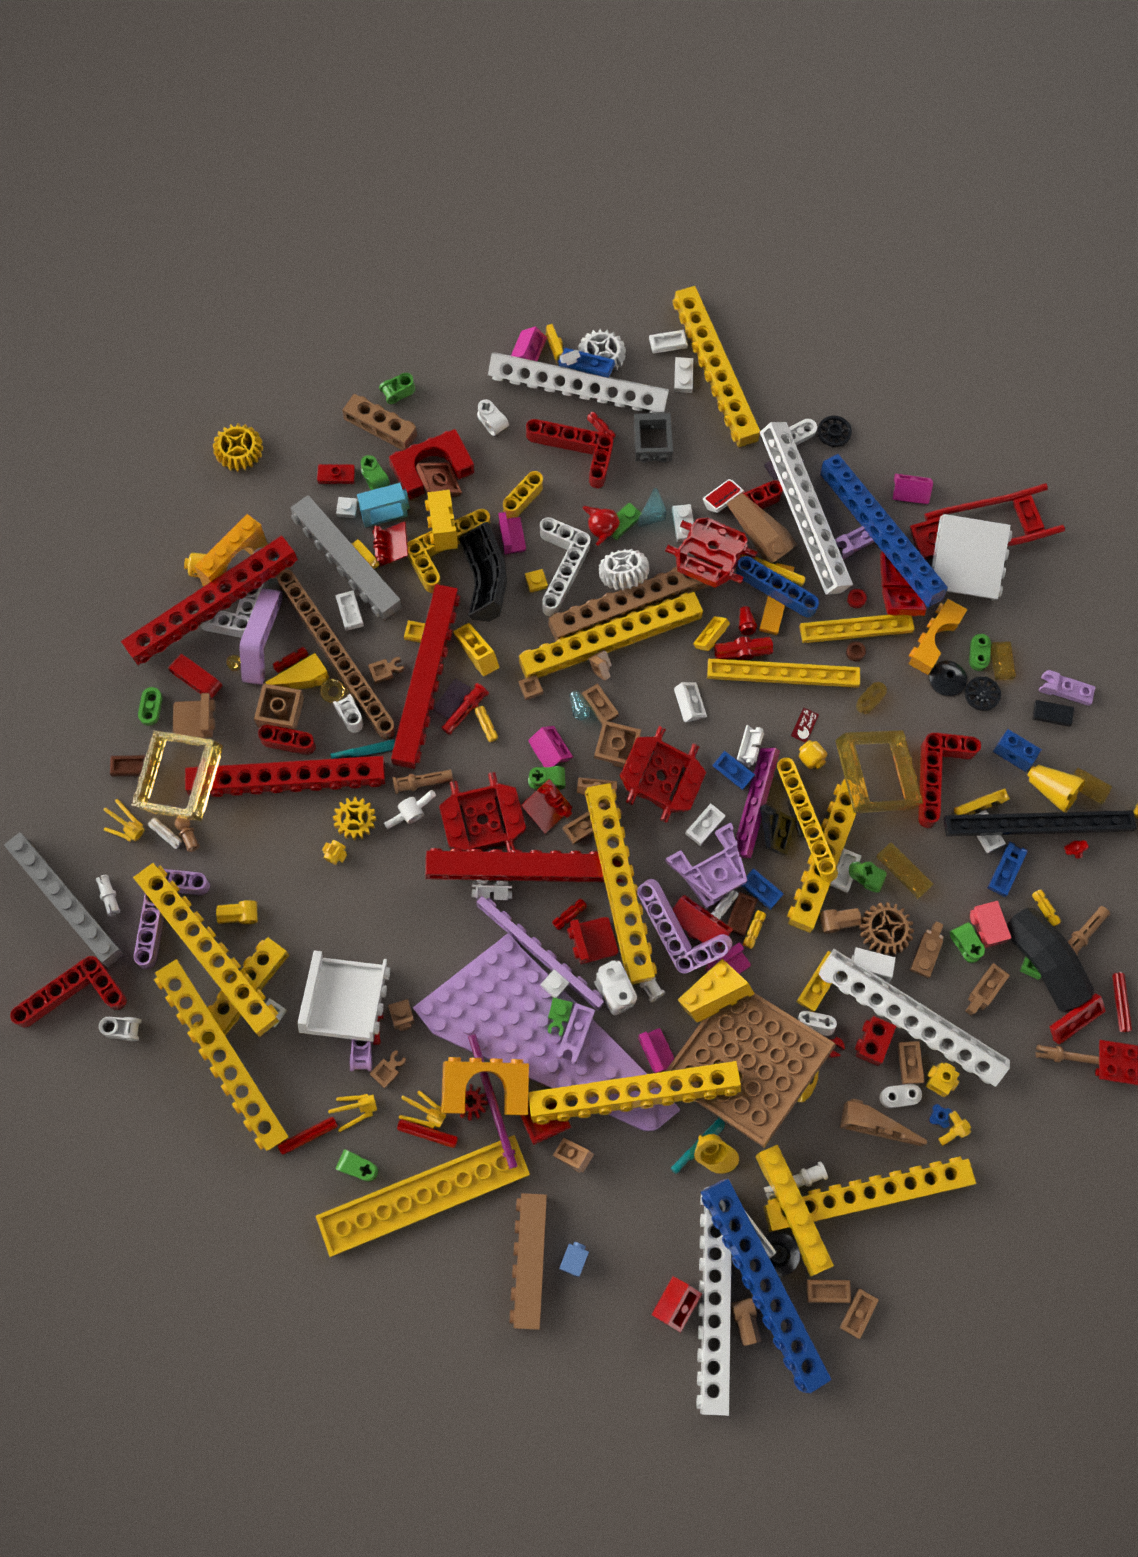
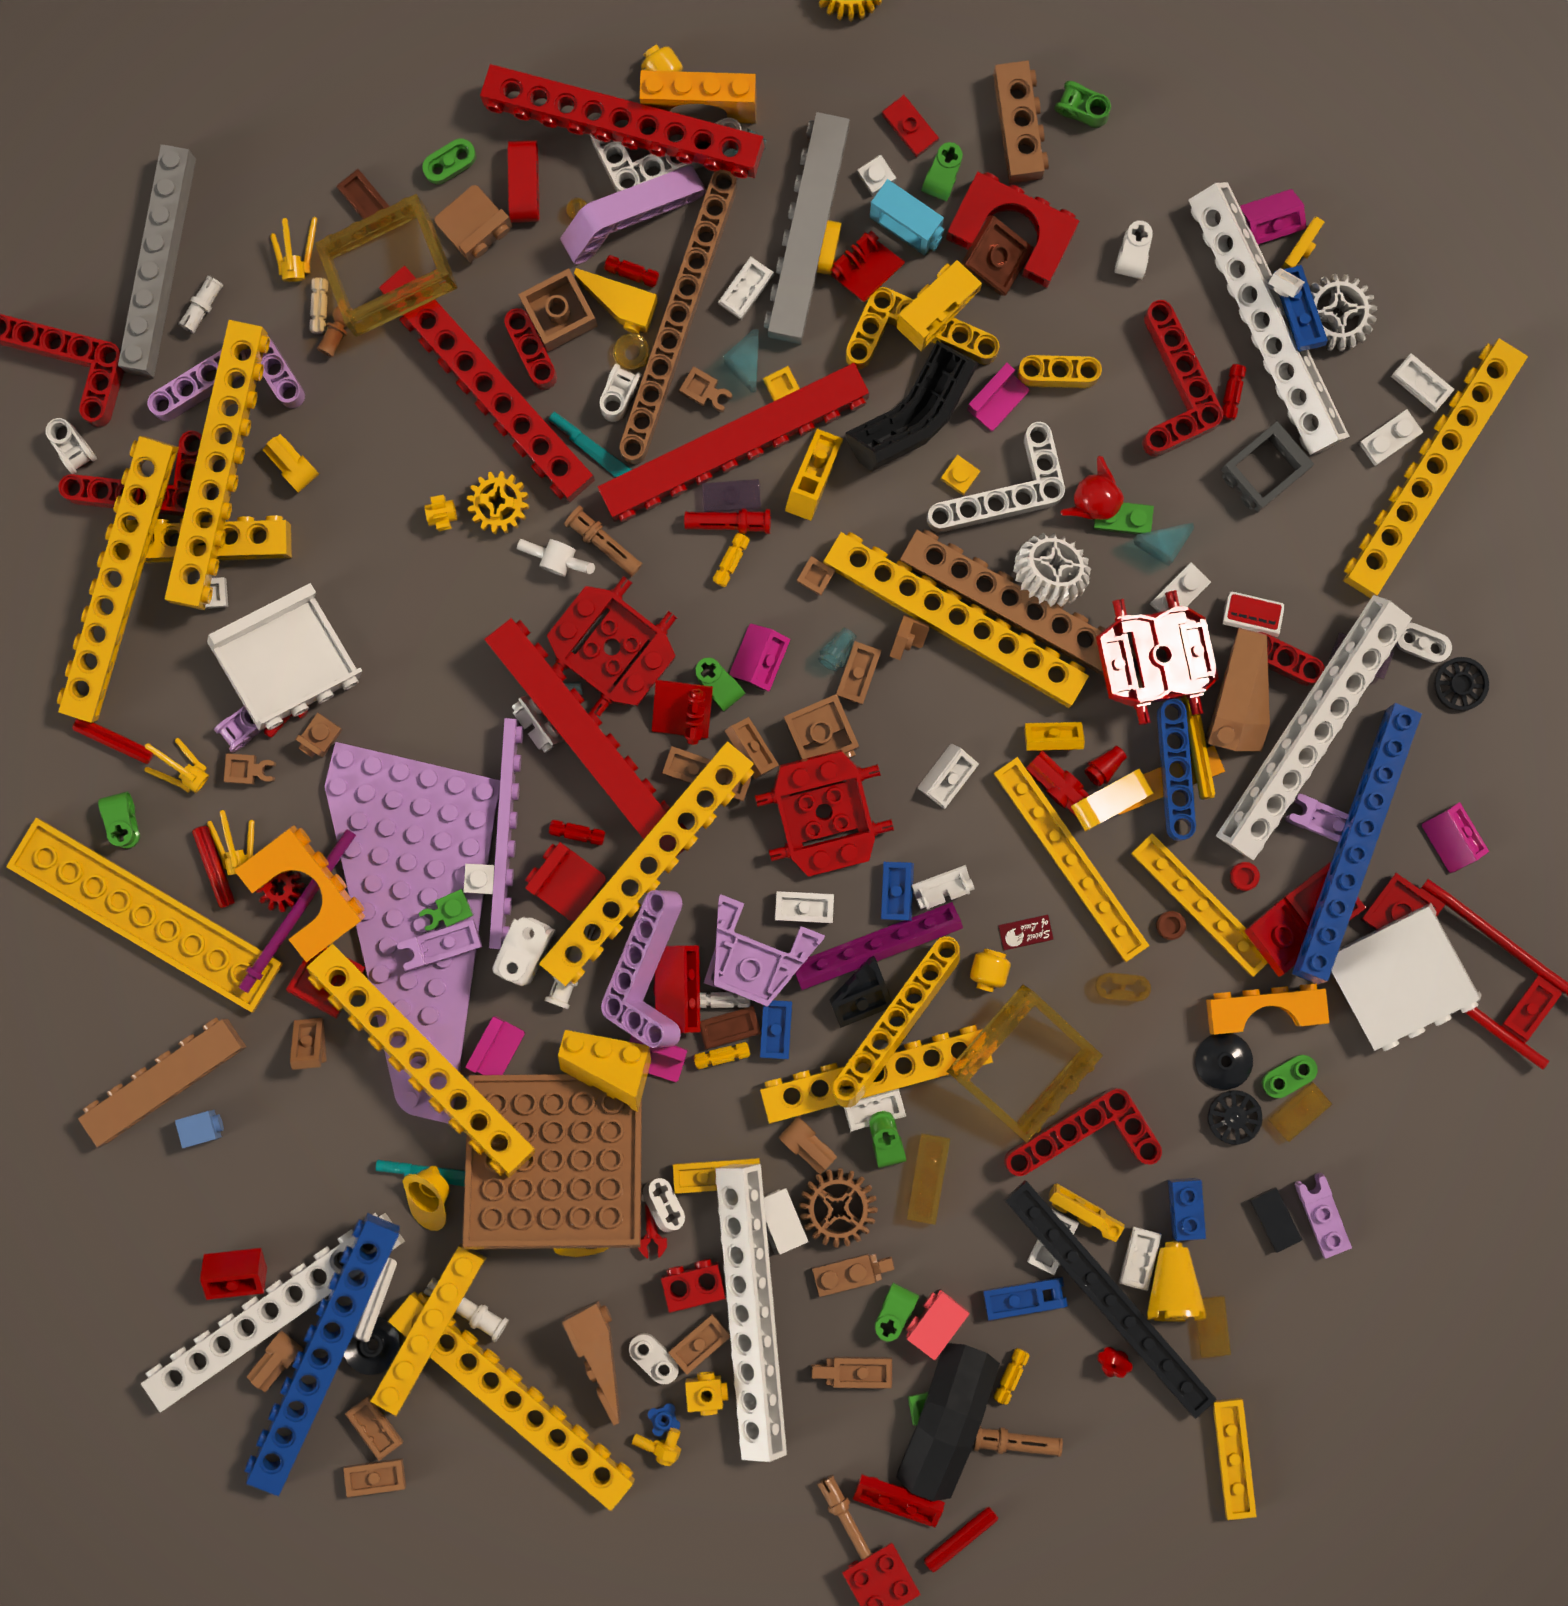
camera: 60 degrees right, 15 degrees up
(168, 1017) = (173, 496): none -> red beam
(387, 638) = (744, 360): none -> clear light blue slope
(769, 626) = (1112, 799): none -> beam
(1026, 794) = (1140, 1258): none -> white plate

